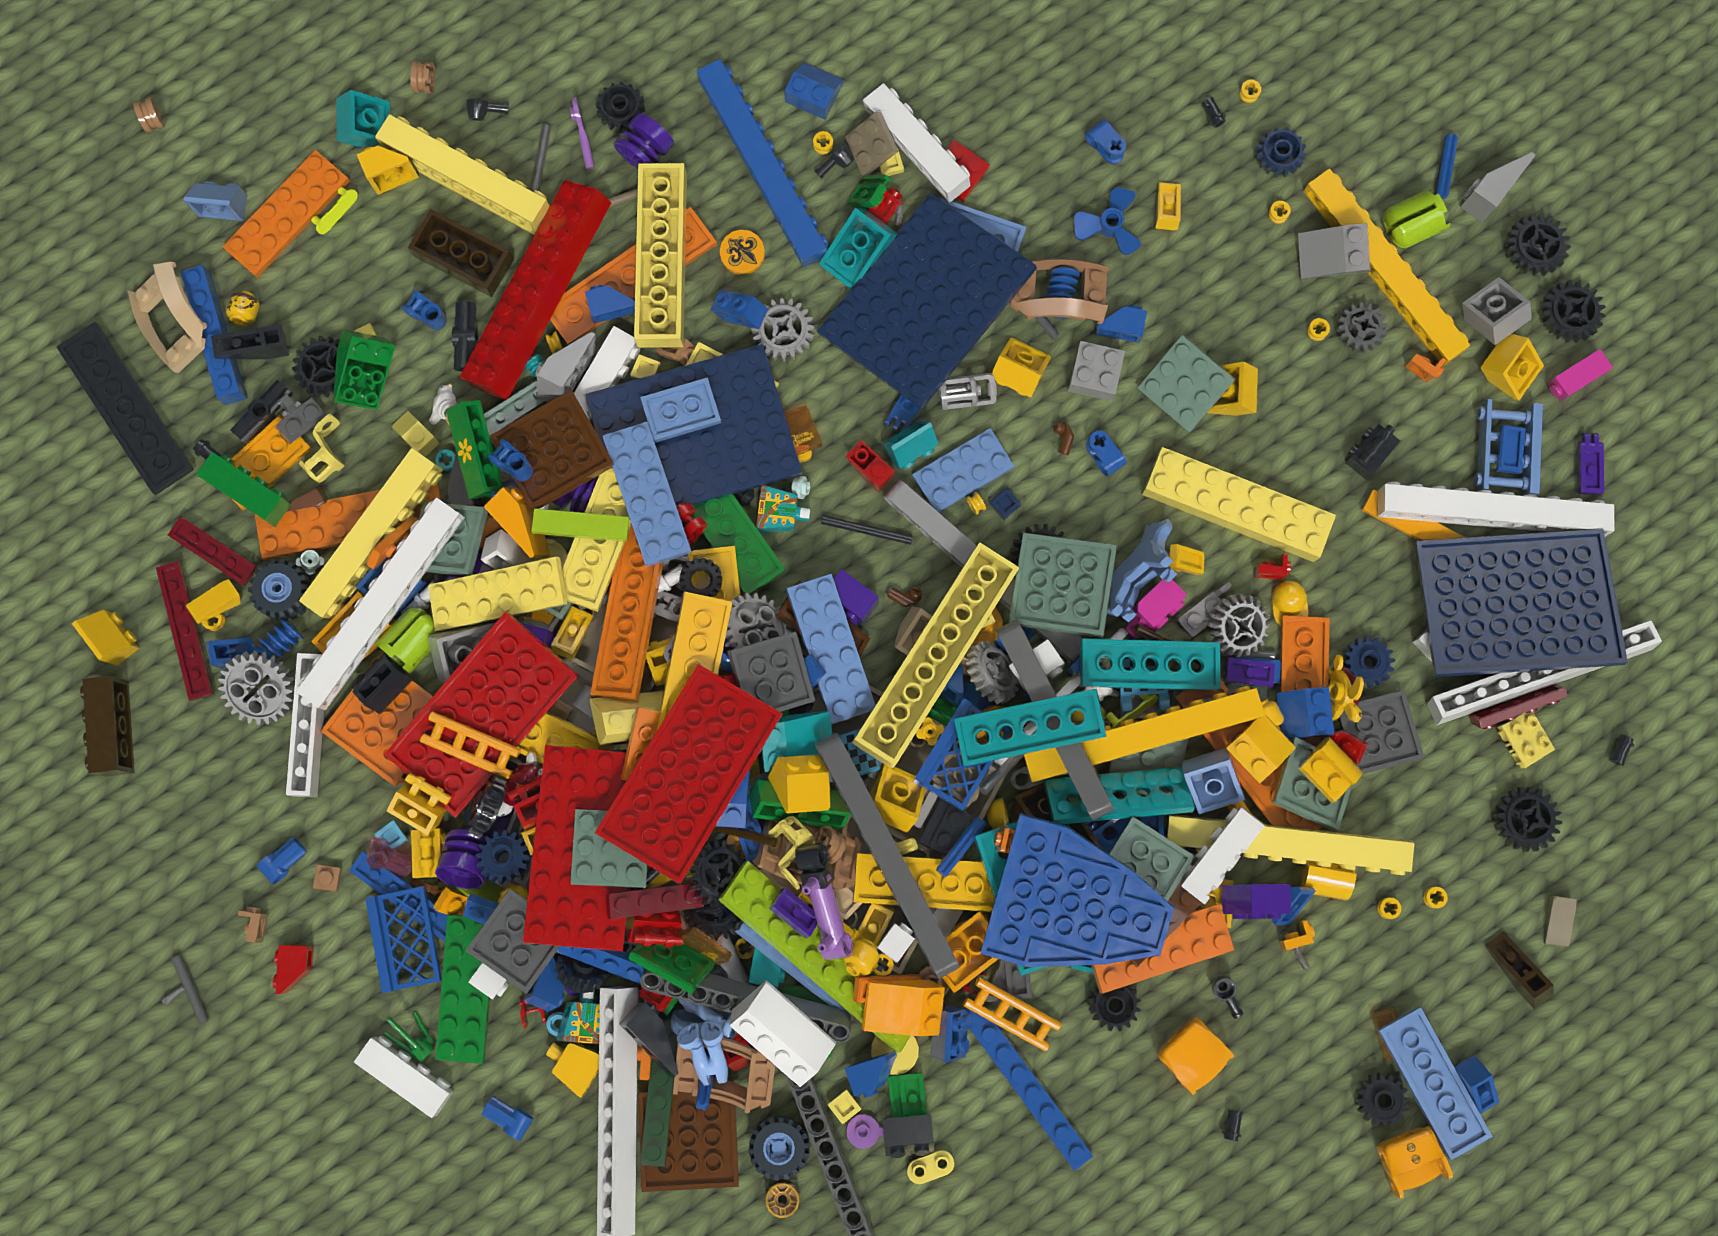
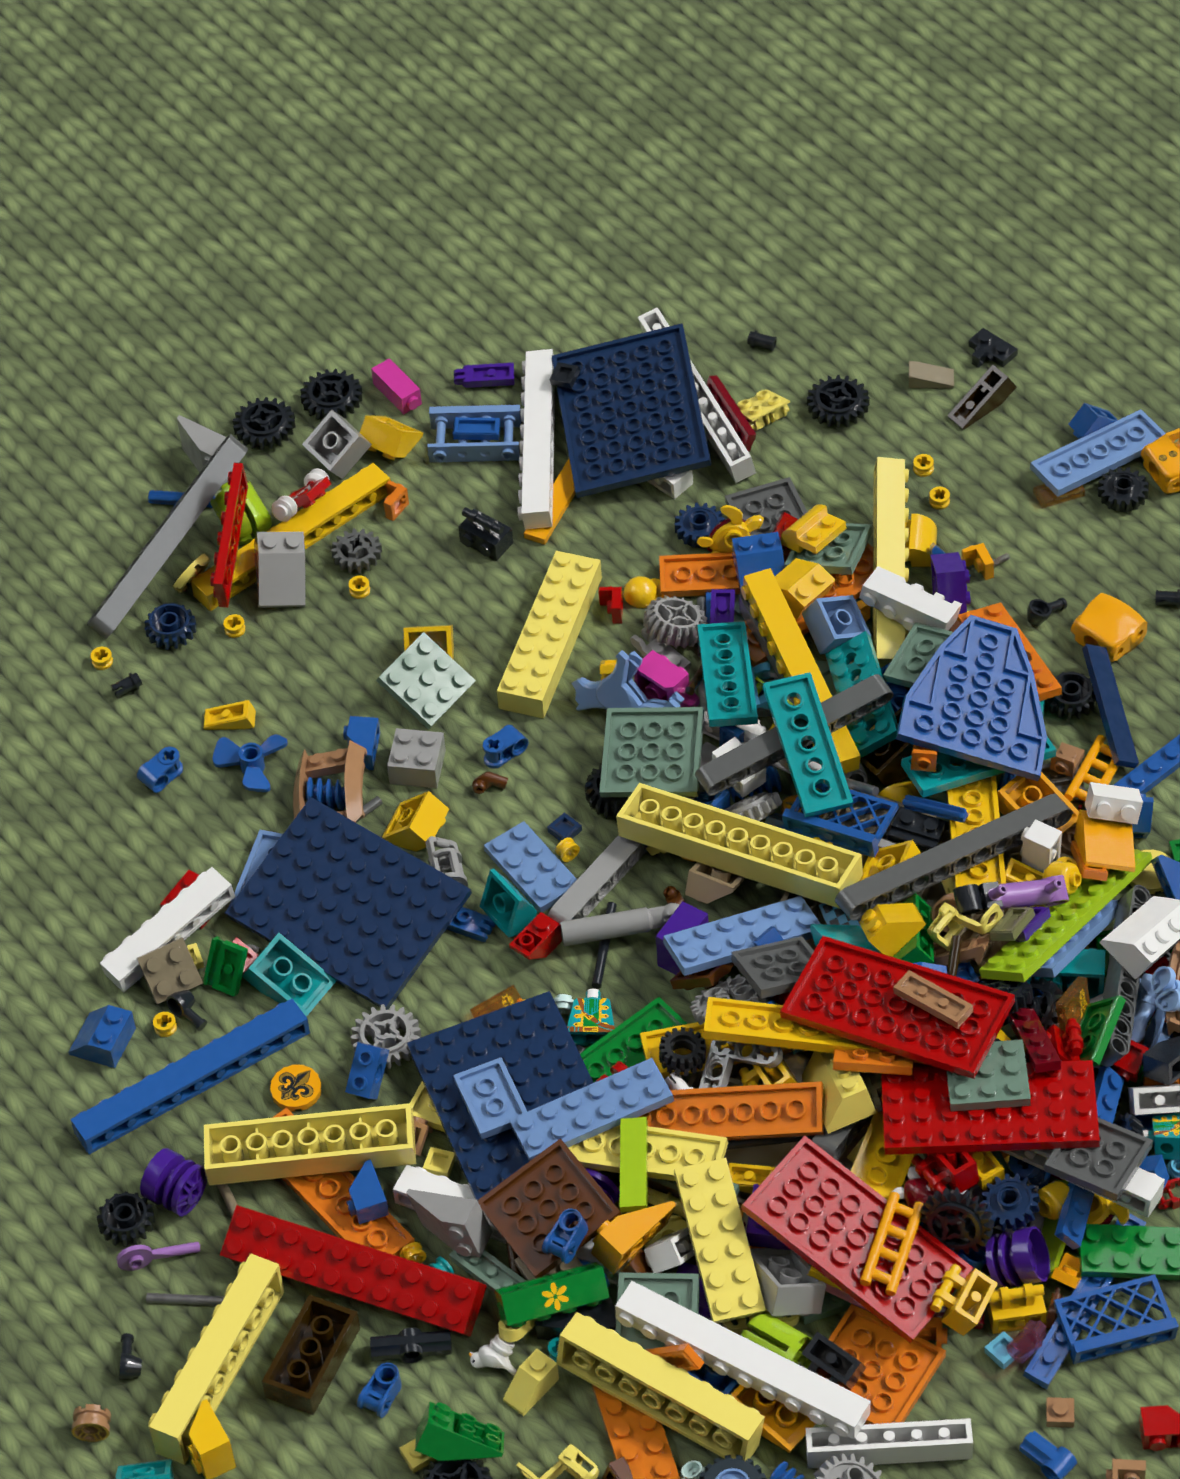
camera: 90 degrees left, 30 degrees down
(679, 805) = (933, 999): none -> medium nougat plate
(786, 897) = (1012, 924): none -> olive tile
(877, 541) = (615, 924): none -> light grey piece
(936, 1020) = (1113, 803): none -> white brick
(1028, 988) = (1067, 759): none -> medium nougat bracket
(1091, 1040) = (1110, 706): none -> dark blue tile
(1341, 171) = (191, 572): none -> light yellow tile
(1367, 198) = (229, 537): none -> red plate
(1384, 146) = (167, 537): none -> beam
(1429, 274) = (314, 488): none -> plate
(1568, 538) = (564, 375): none -> black plate
(1595, 989) = (991, 348): none -> black hinge

